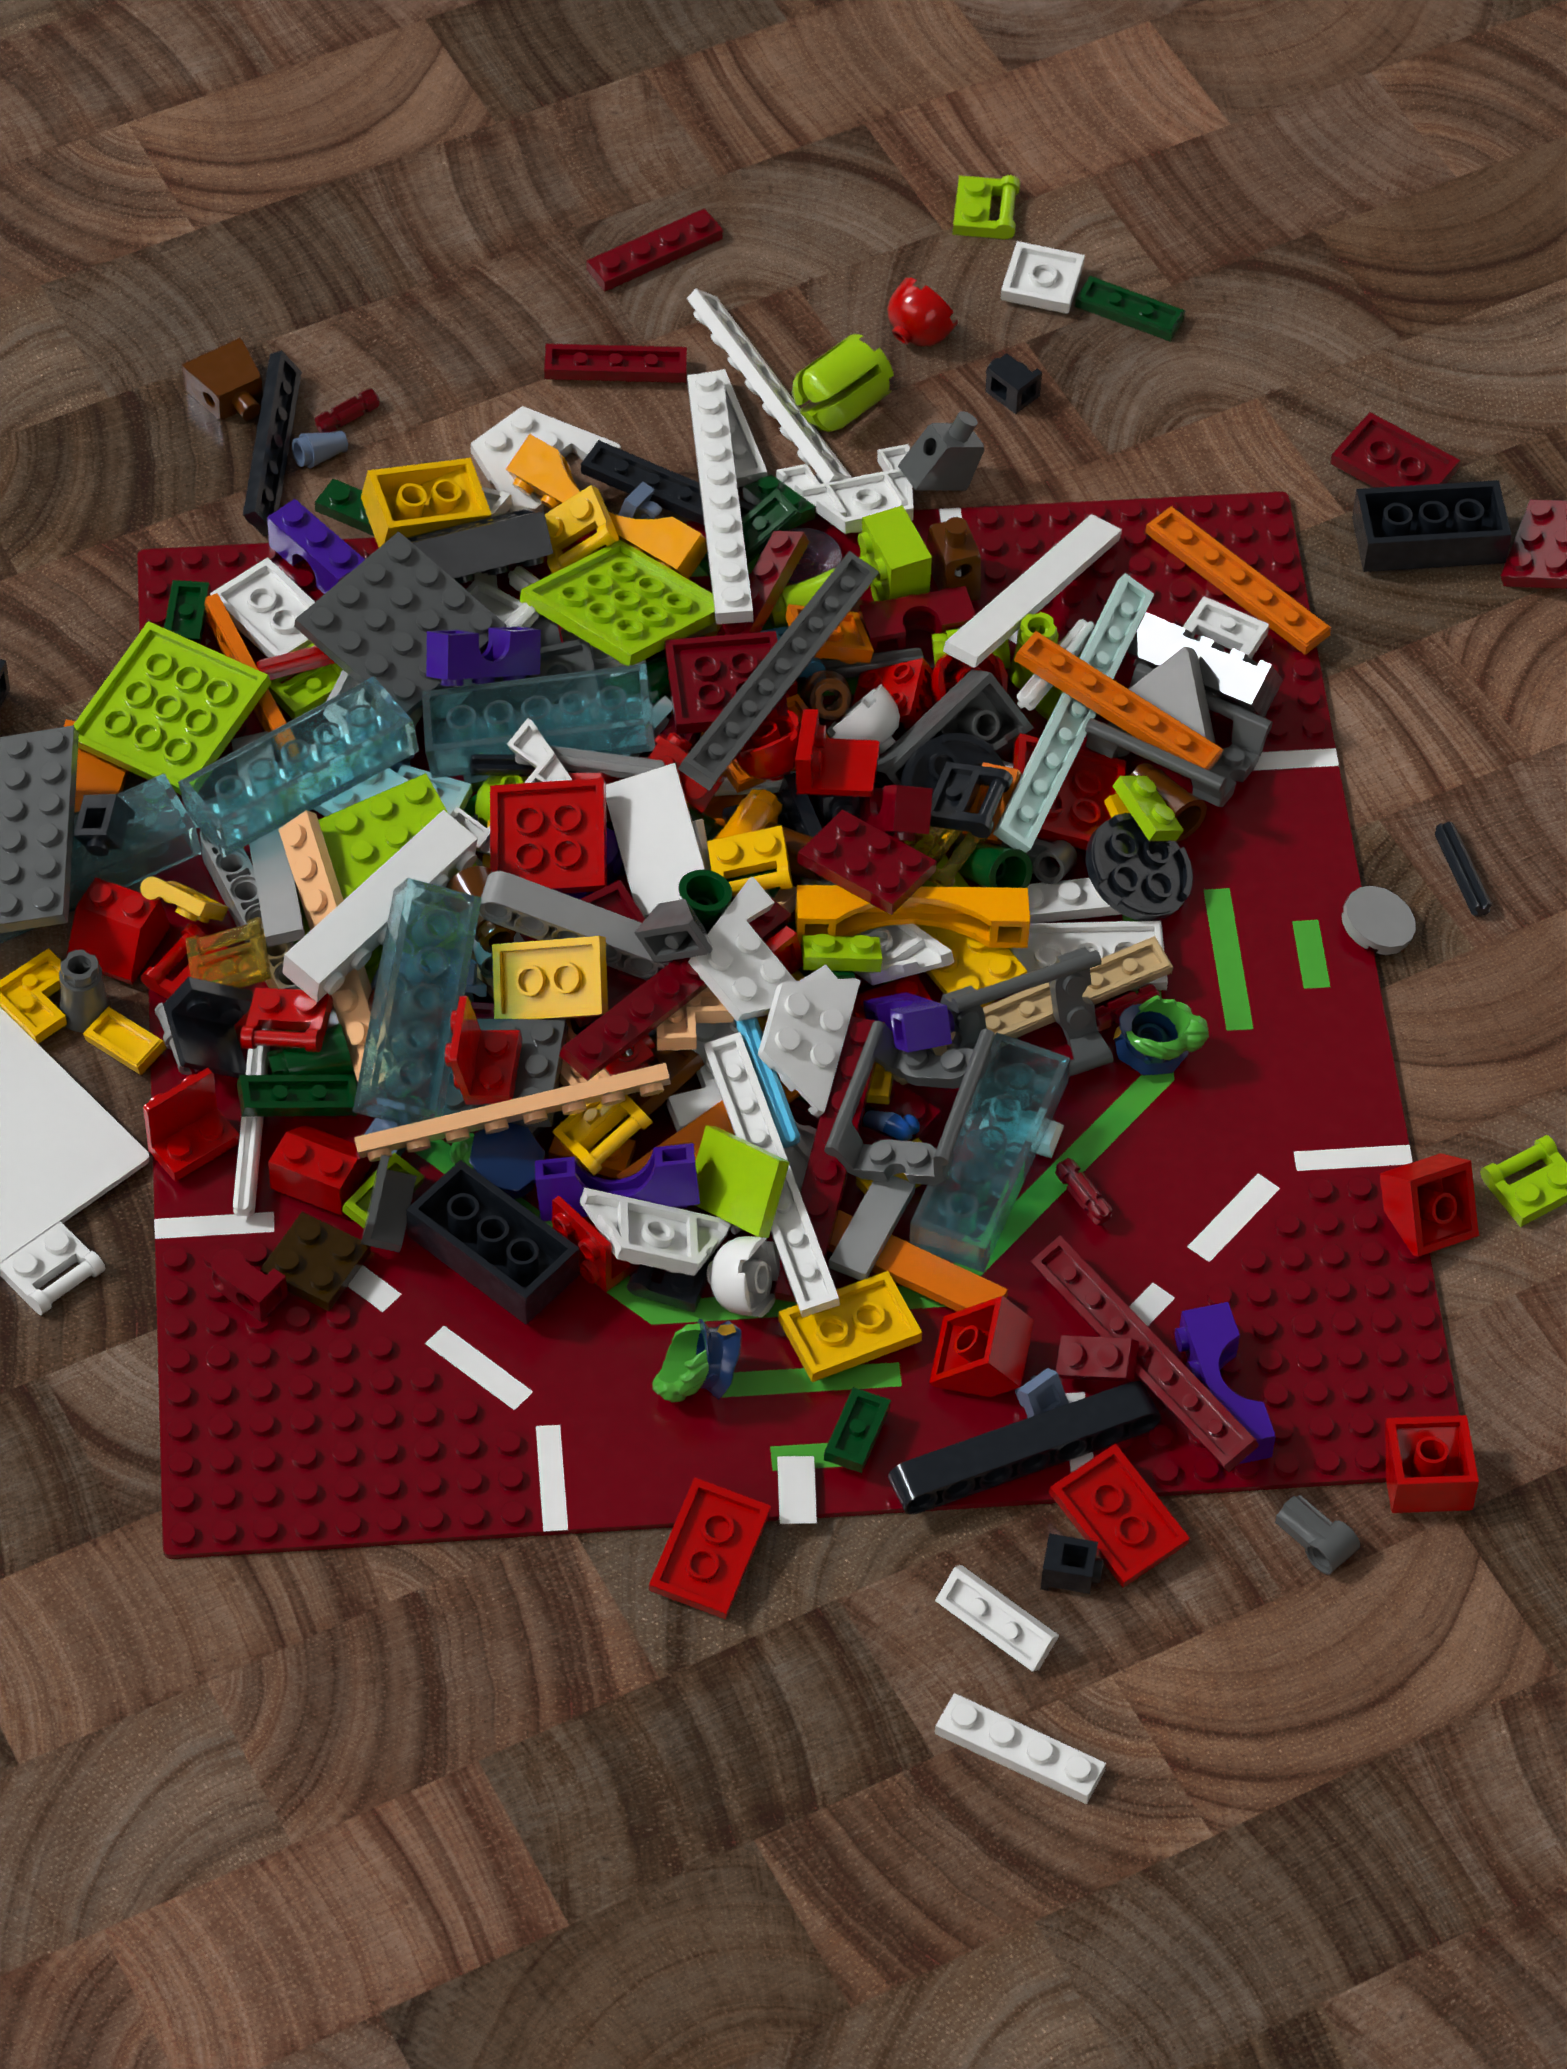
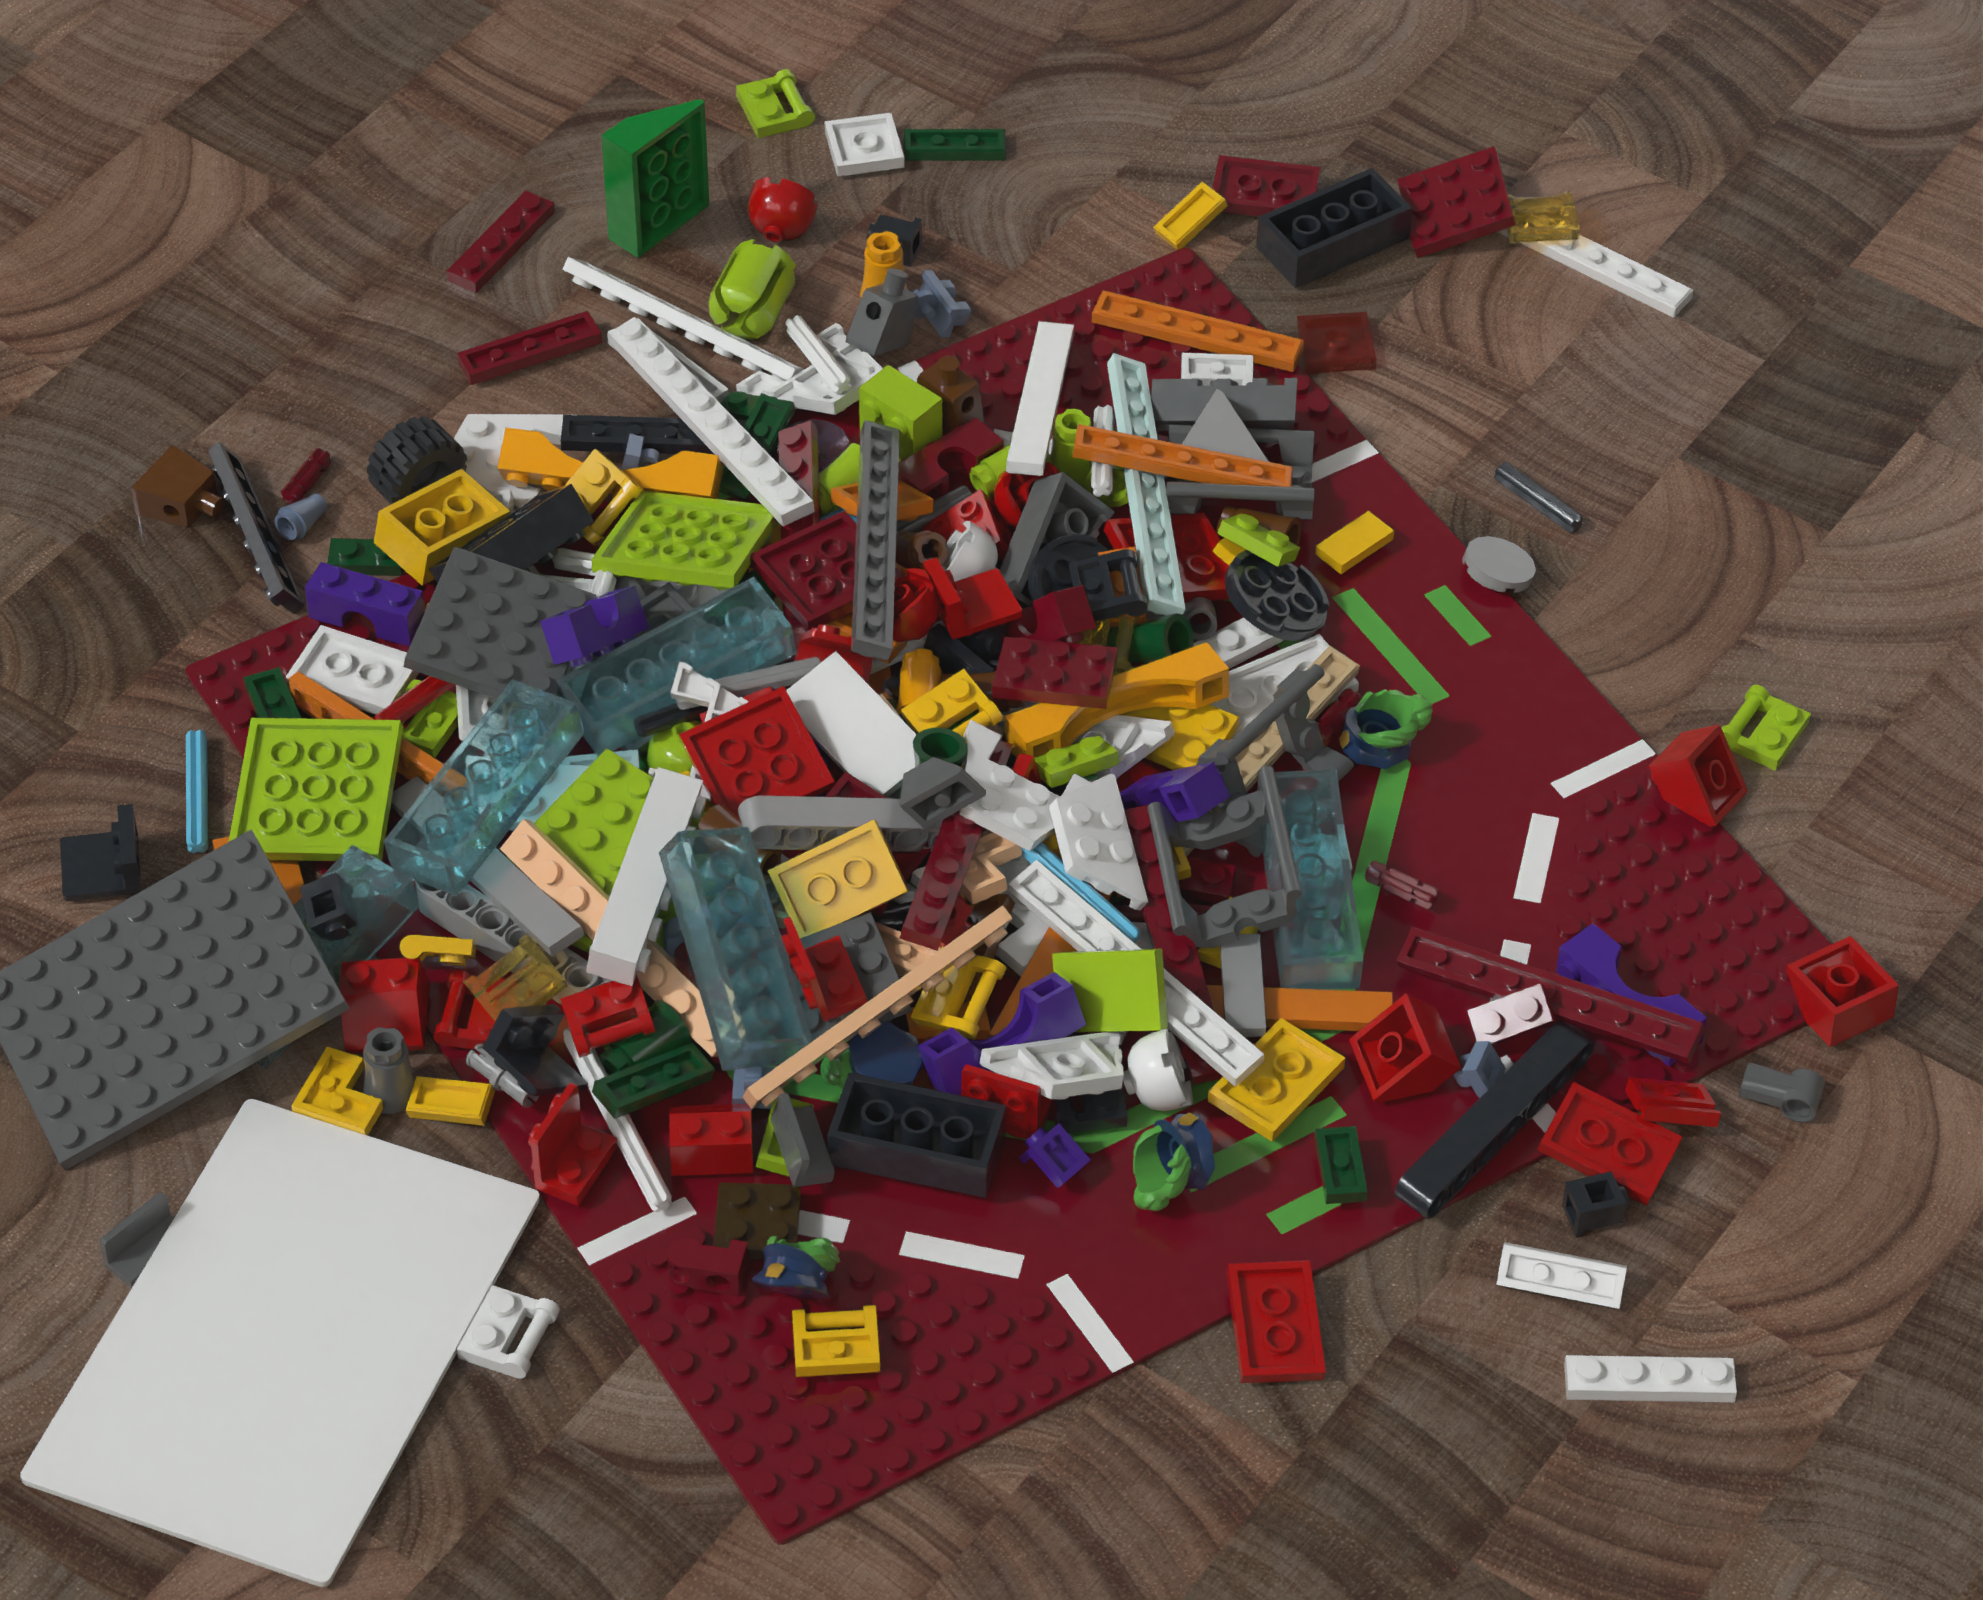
camera: 25 degrees left, 5 degrees down
(80, 669) = (196, 792): none -> medium azure axle
(312, 1407) = (836, 1350): none -> yellow plate
(316, 1316) = (798, 1267): none -> dark blue piece
(436, 431) = (413, 458): none -> black tyre
(607, 1311) = (1055, 1154): none -> dark purple bracket
(796, 1489) = (1316, 1240): white sticker -> none
(811, 238) = (655, 174): none -> green slope
(863, 469) = (818, 354): none -> white axle
(892, 1124) = (1206, 891): blue arm -> none
(979, 398) = (881, 253): none -> light orange plant
(1008, 460) = (938, 304): none -> sand blue hips
(1202, 1501) = (1672, 1102): none -> red plate
(1253, 844) = (1354, 542): none -> yellow tile
(1304, 463) = (1190, 216): none -> yellow tile
(1368, 641) = (1336, 342): none -> clear red tile

